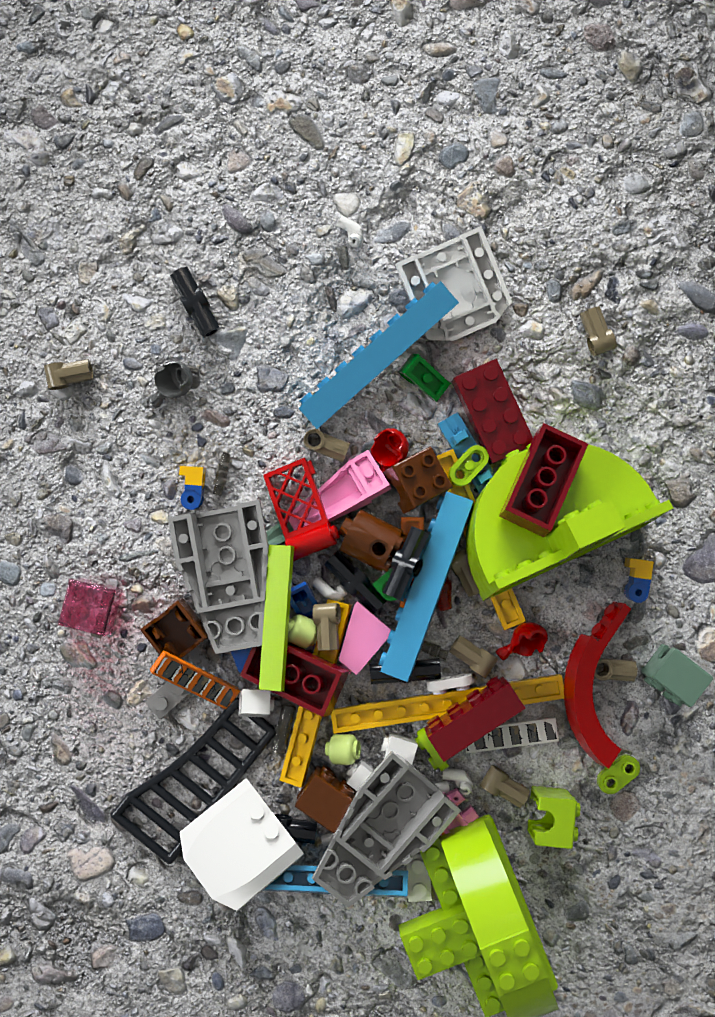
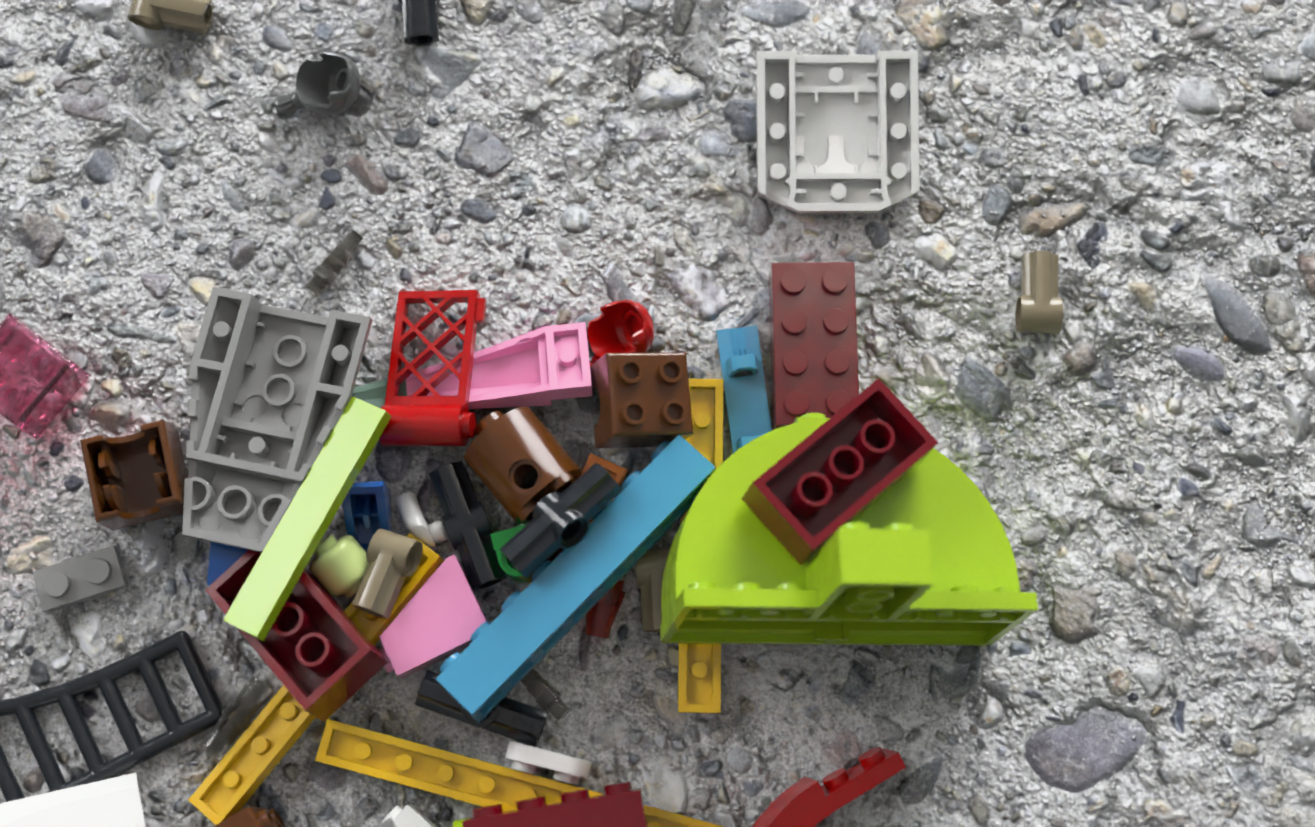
camera: 25 degrees right, 10 degrees down
(193, 493) = (280, 262): leg -> none
(194, 680) = (128, 564): tile -> none
(255, 703) = (210, 651): white brick -> none
(328, 445) = (523, 288): dark tan piece -> none
(343, 749) = (318, 795): yellowish green head -> none
(378, 355) = (666, 178): dark azure brick -> none
(424, 376) = (726, 244): green plate -> none
(468, 466) = (733, 414): lime plate -> none
(477, 659) = (611, 741): dark tan piece -> none
(524, 640) = (705, 746): red hair -> none
(639, 579) = (937, 737): leg -> none

